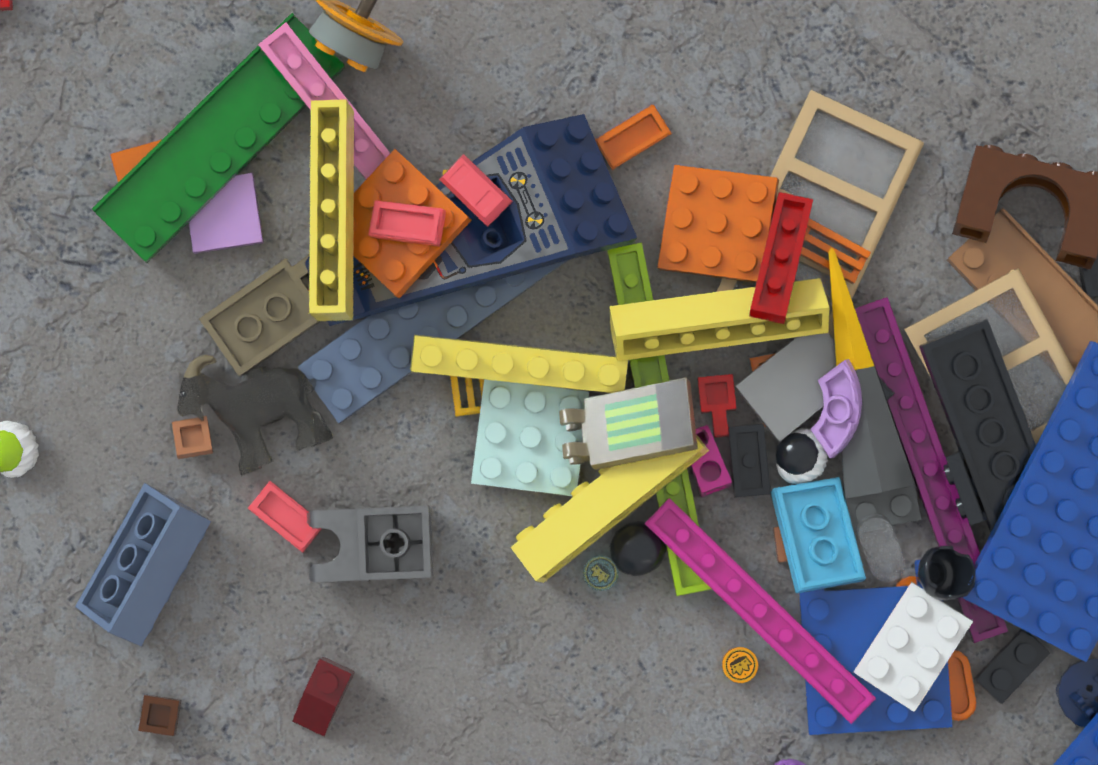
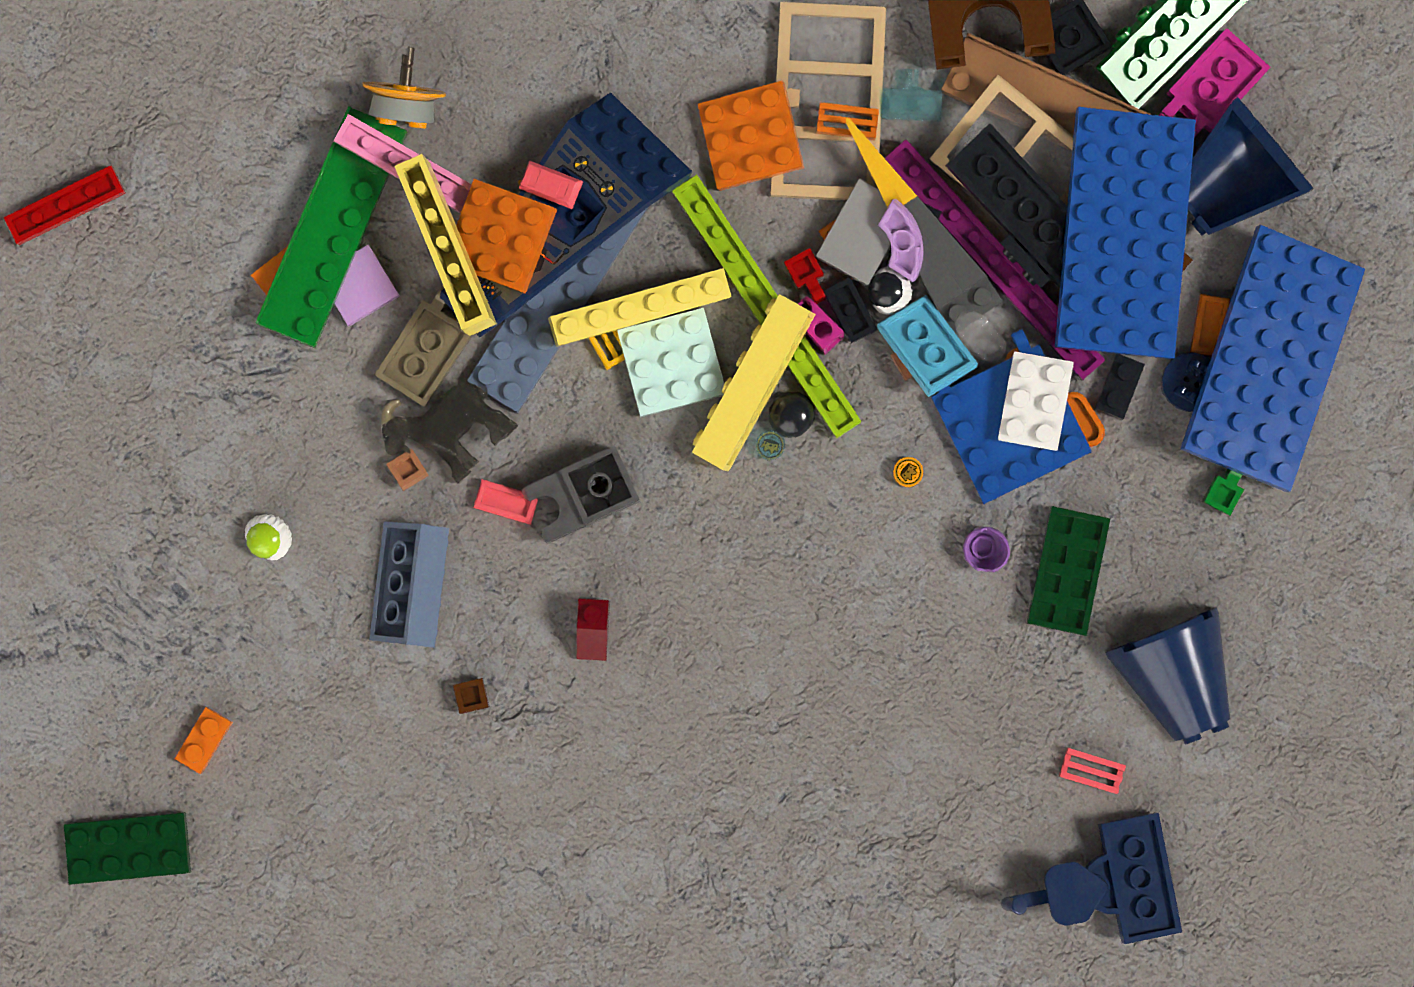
camera: 20 degrees left, 0 degrees up
(407, 223) = (508, 231): coral tile -> none
(632, 137) = (656, 95): orange tile -> none
(632, 425) = (747, 317): tile -> none
(712, 321) = (781, 208): light yellow brick -> none
(760, 611) = (905, 422): dark pink tile -> none
(781, 258) = (810, 140): red plate -> none
(910, 258) = (911, 102): none -> clear light blue plate
(946, 573) = (1038, 332): black hair -> none

